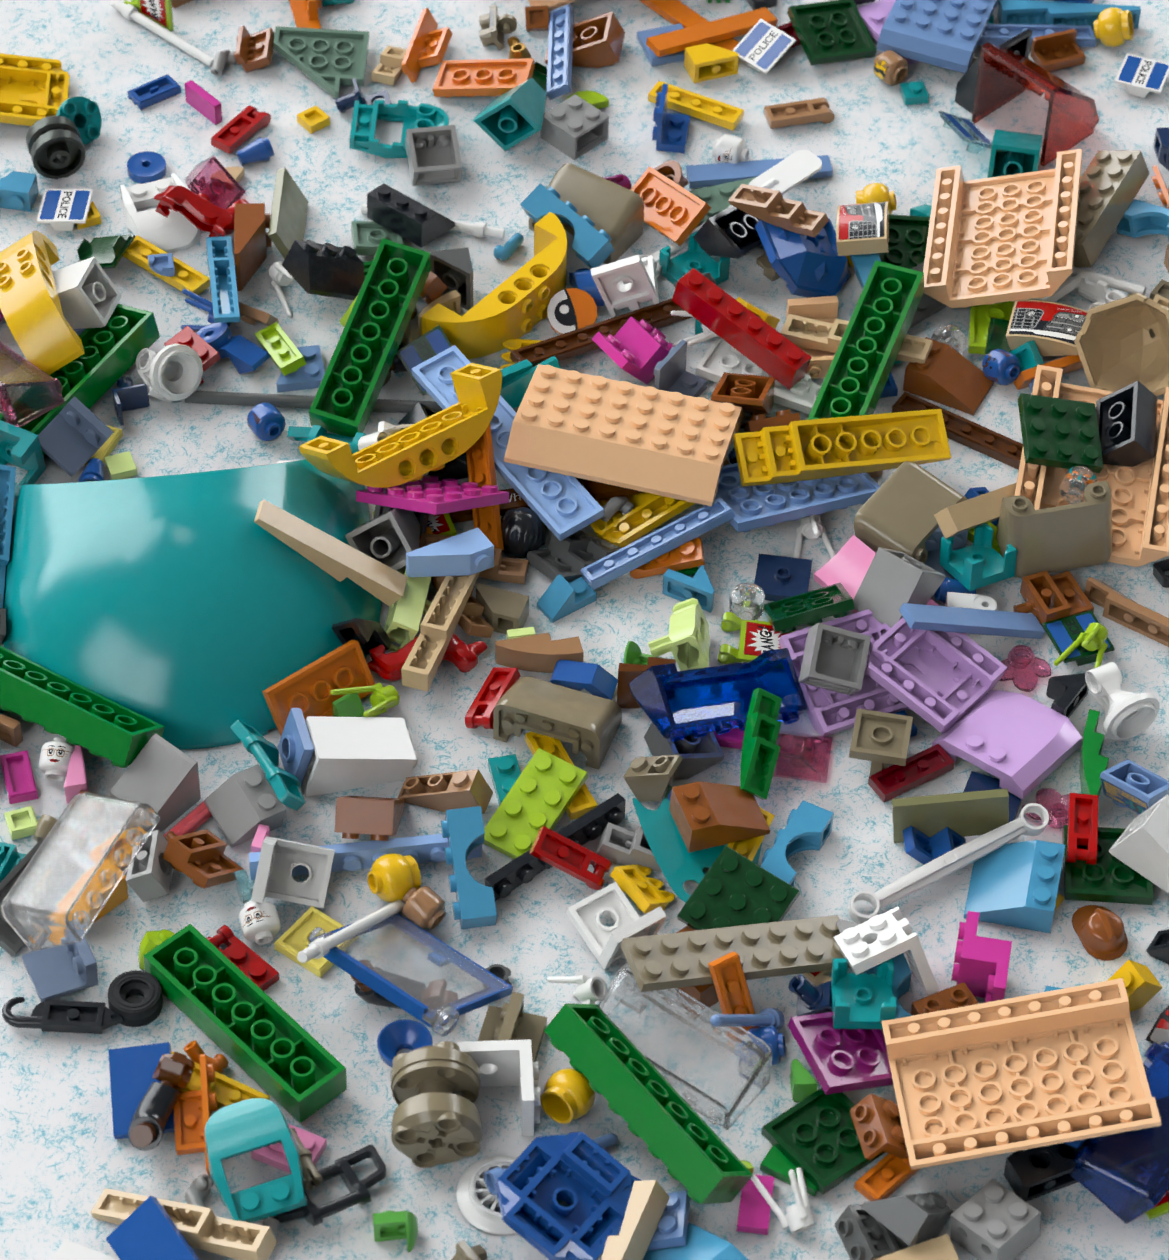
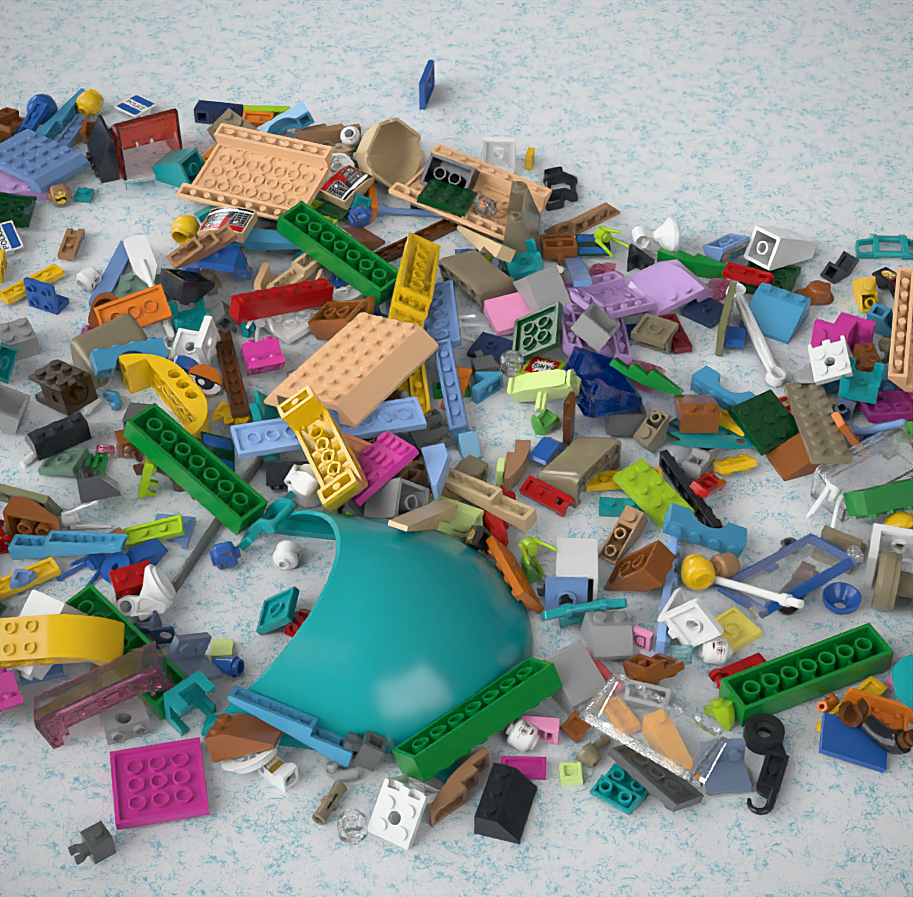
camera: 70 degrees left, 5 degrees down
(491, 190) = (64, 387): none -> dark brown torso
(604, 940) = (778, 480): white bracket -> none
(672, 373) = (294, 346): sand blue bracket -> none
(727, 573) = (483, 363): none -> dark grey brick

